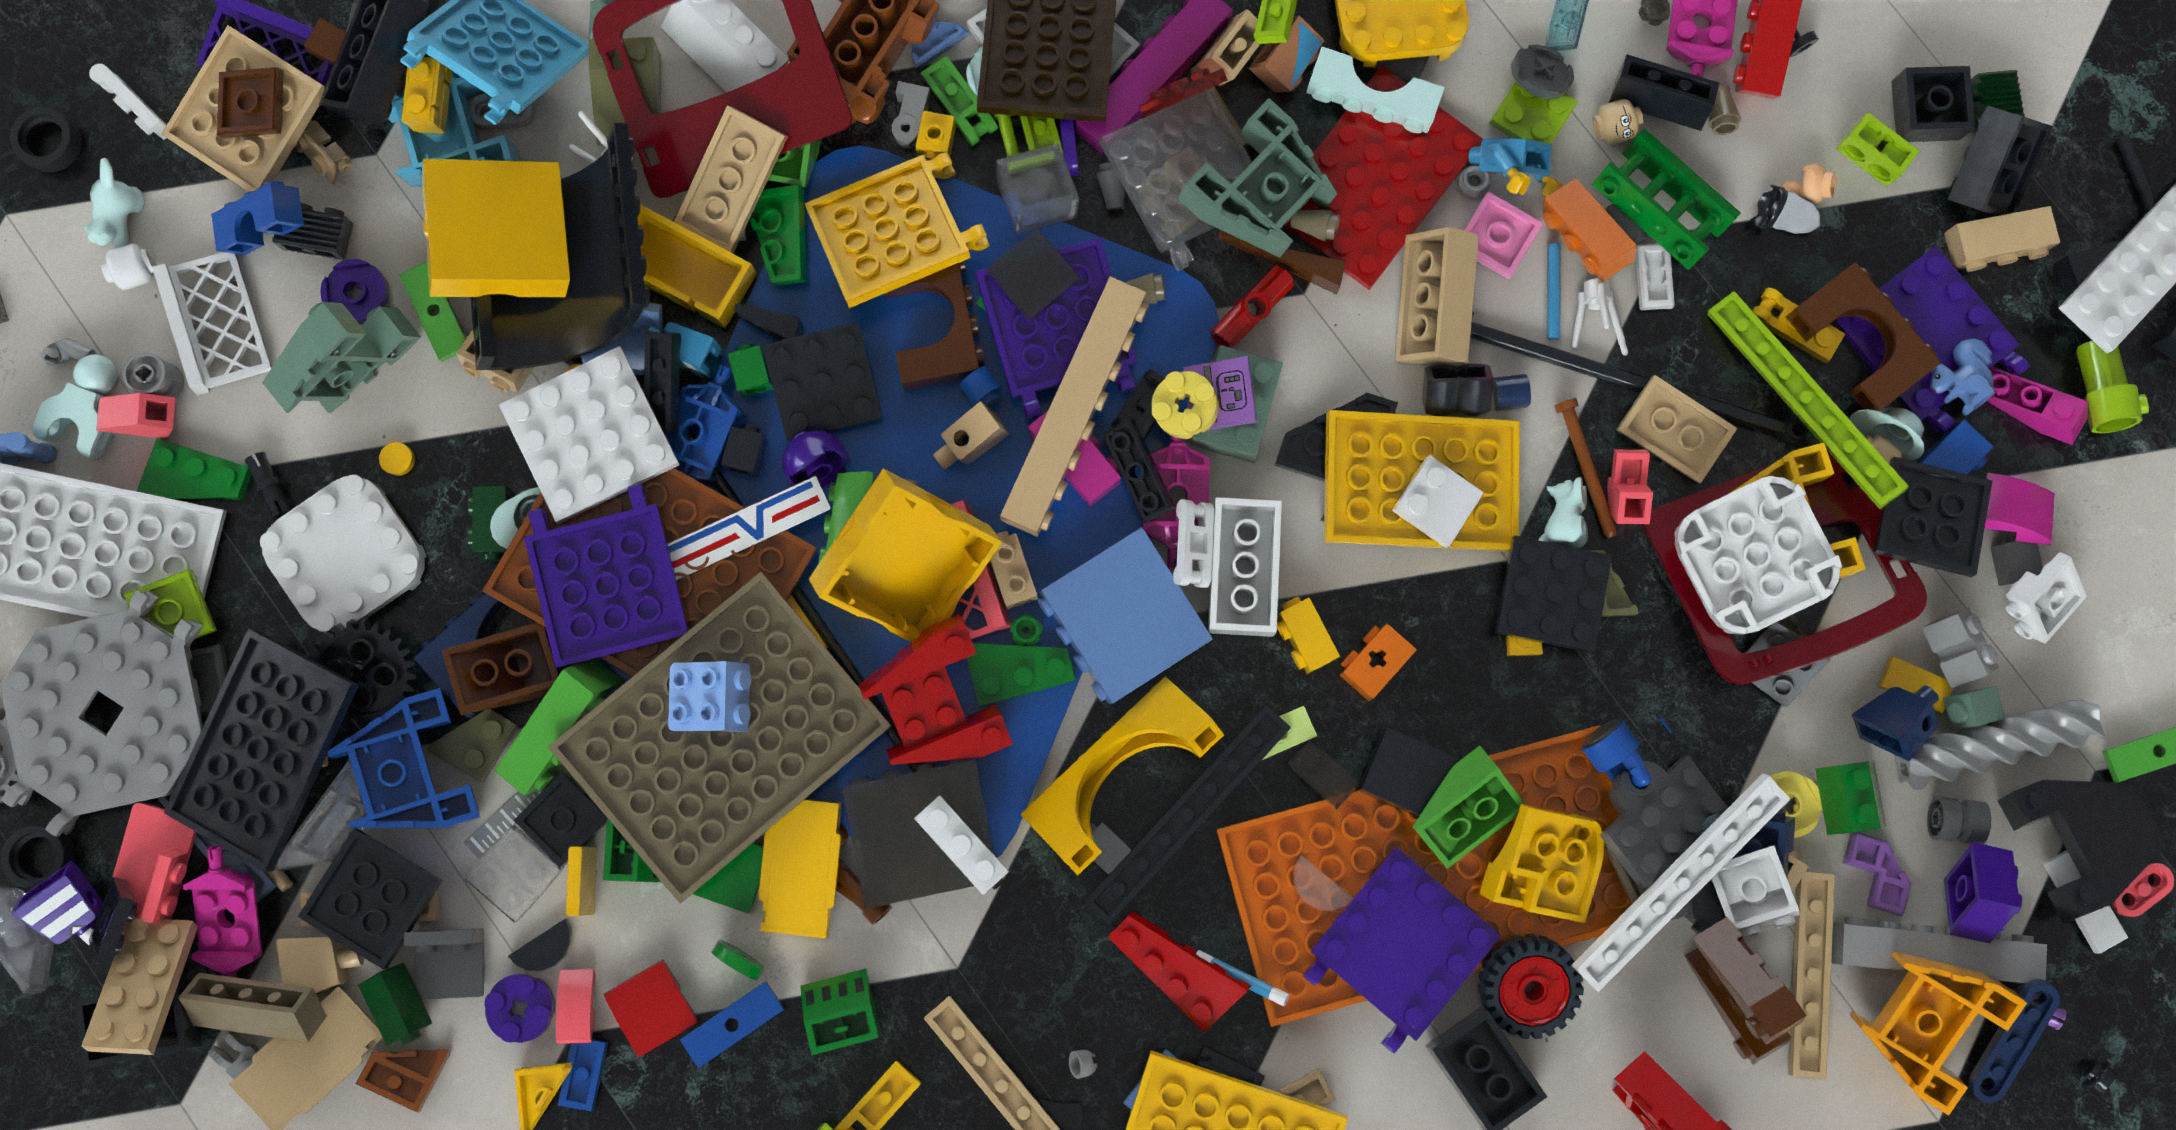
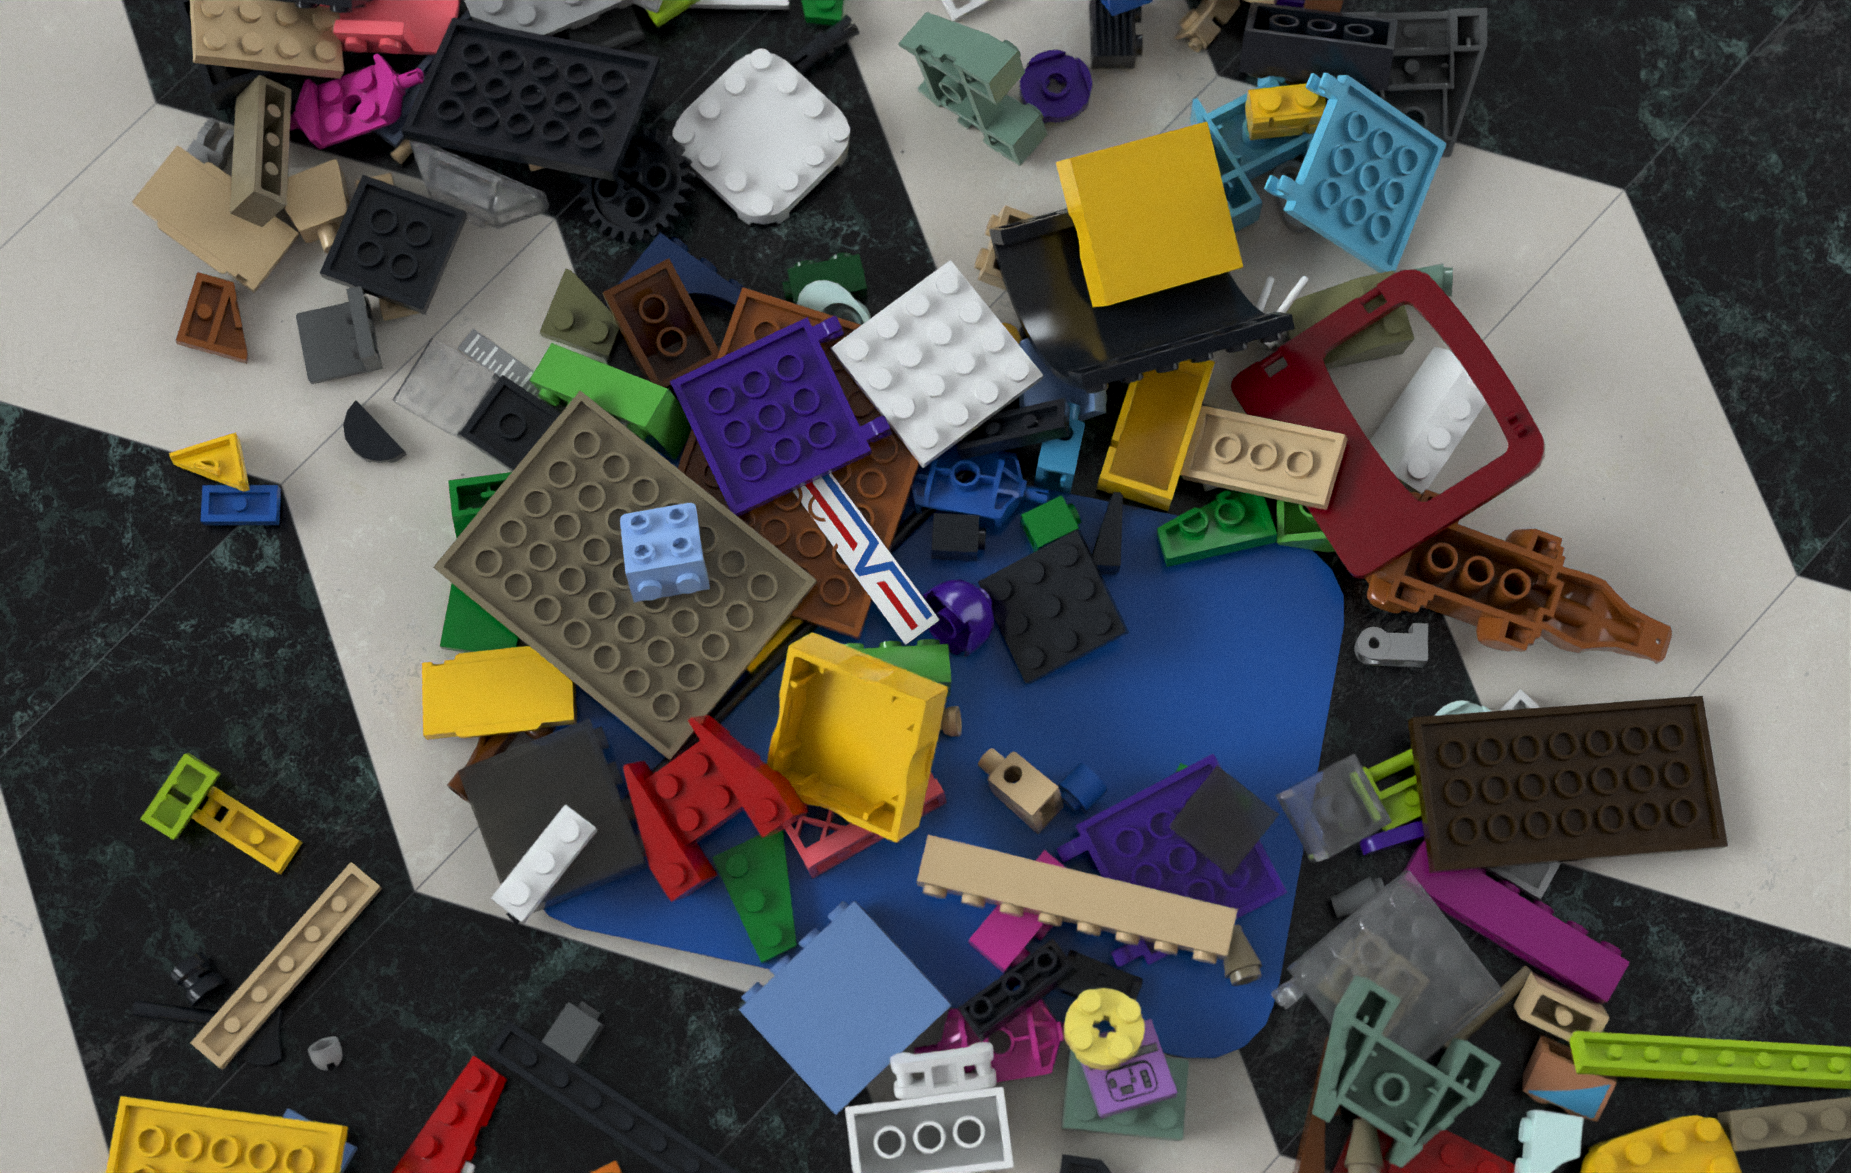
camera: 80 degrees right, 5 degrees down
(395, 771) = (529, 241): blue wedge -> none
(395, 1005) = (285, 295): dark green brick -> none
(396, 459) = (879, 170): yellow tile -> none
(444, 328) = (1032, 186): bright green tile -> none
(501, 1002) = (303, 403): dark purple plate -> none
(575, 1006) = (310, 481): coral slope -> none
(581, 881) = (445, 459): yellow tile -> none
(650, 1008) = (321, 562): red slope -> none
(716, 1036) = (300, 639): blue tile -> none
(737, 959) = (385, 644): green piece -> none
(839, 1012) = (343, 767): green slope -> none
(891, 229) = (1246, 649): yellow plate -> none
(935, 134) = (1371, 680): yellow brick -> none
(941, 39) = (1494, 664): medium blue tile -> none
(955, 354) = (1117, 754): reddish brown arch -> none
(957, 99) = (1425, 695): bright green plate -> none
(1012, 572) = (873, 865): tan brick -> none
(1019, 624) = (819, 891): green plate -> none
(1158, 719) = (609, 977): yellow arch -> none
(1182, 90) = (1489, 958): clear red plate -> none
(1264, 295) = (1264, 1106): red piece -> none

